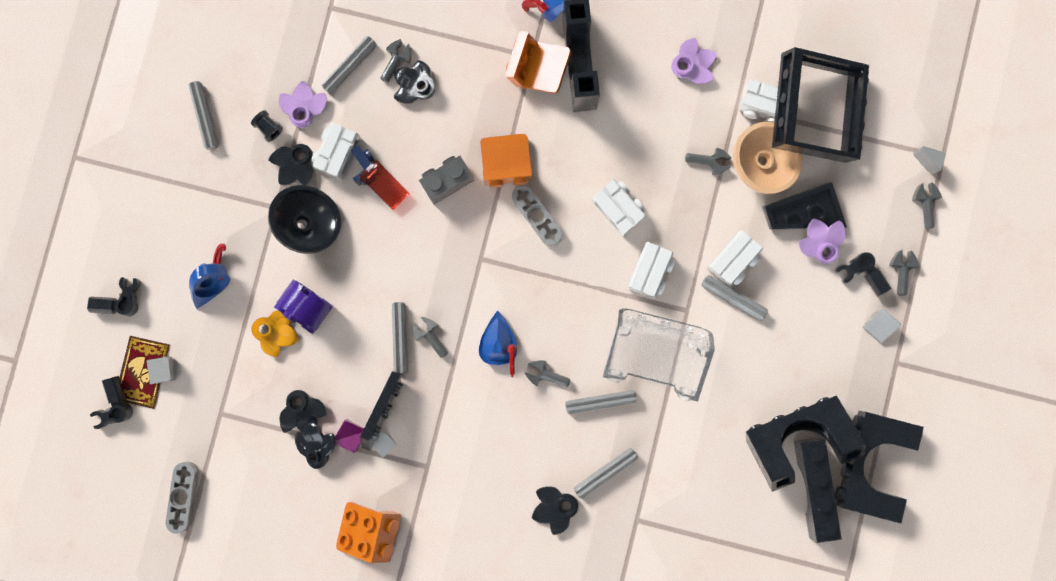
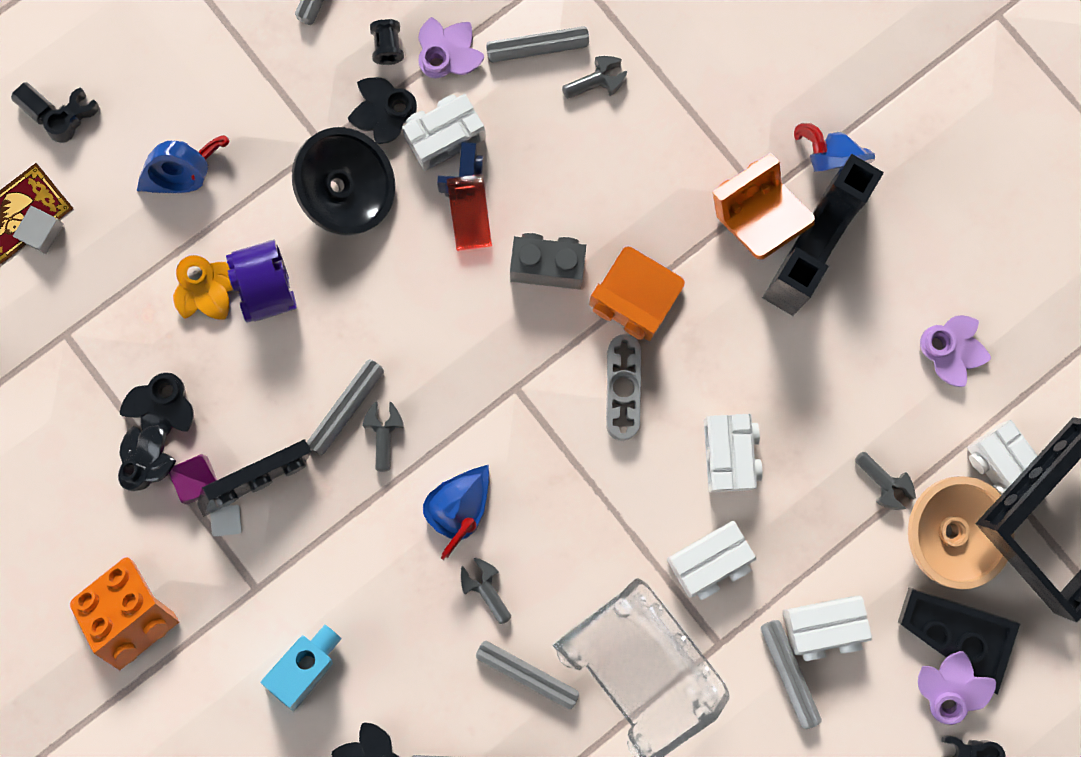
camera: 25 degrees right, 5 degrees down
(411, 82) = (595, 118): black plate -> none
(483, 499) = (292, 683): none -> medium azure torso

